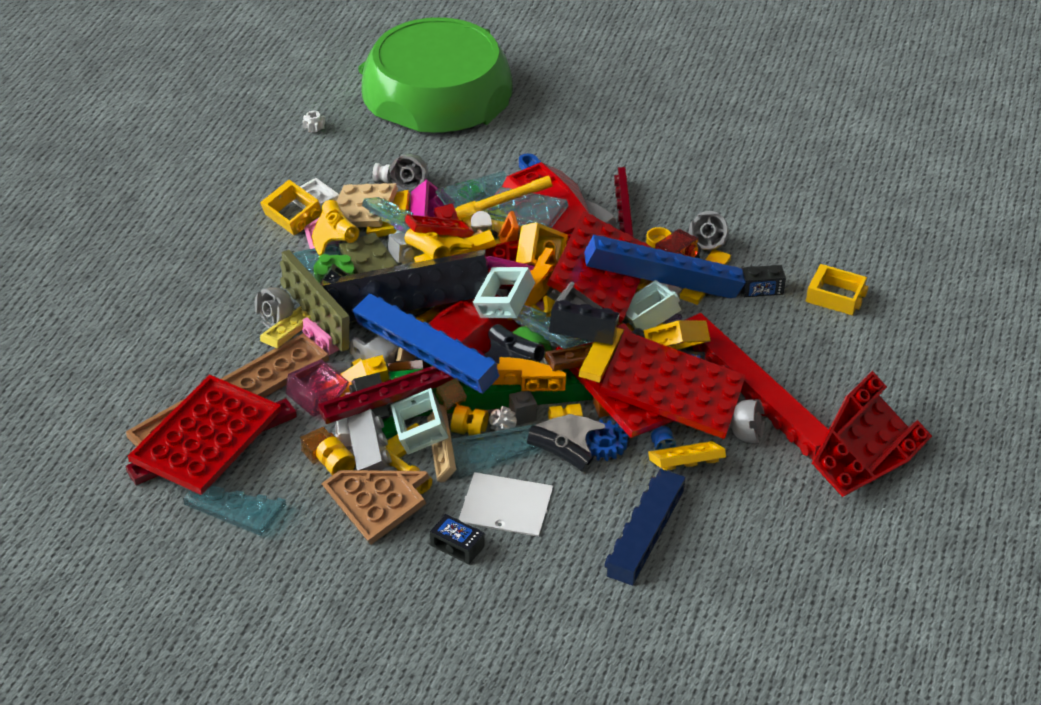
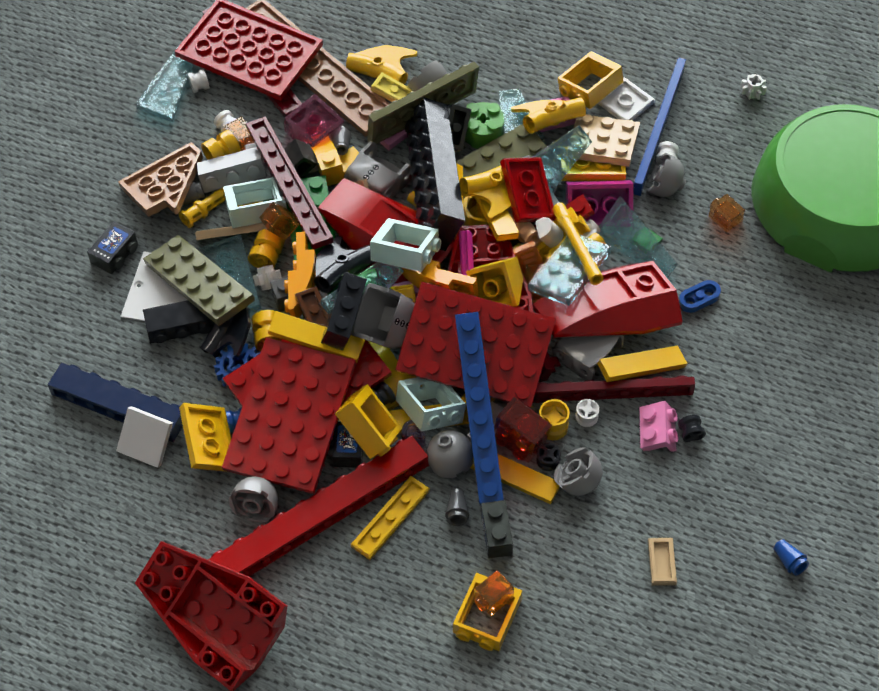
camera: 90 degrees right, 15 degrees up
(235, 479) = (198, 81): none -> white wheel
(238, 345) = (380, 59): none -> yellow pin
(299, 456) = (223, 118): none -> white wheel
(340, 171) = (659, 127): none -> tile
(427, 343) = (330, 185): blue brick -> none
(449, 145) = (726, 212): none -> clear orange brick
(510, 460) = (199, 280): none -> olive plate
(552, 482) = (175, 321): none -> black brick
(603, 195) = (642, 363): none -> yellow tile
(643, 227) = (587, 407): none -> white wheel
(659, 195) = (658, 426): none -> bright pink bracket
(660, 178) = (691, 428): none -> black wheel
(688, 498) = (144, 436): none -> white tile
(694, 301) = (449, 453): none -> light grey cylinder
(743, 306) = (457, 508): none -> dark grey cone
(757, 348) = (390, 517): none -> yellow tile
(769, 140) = (791, 557): none -> blue cone
(777, 203) = (662, 561): none -> tan tile
(831, 271) = (493, 593): none -> clear orange brick

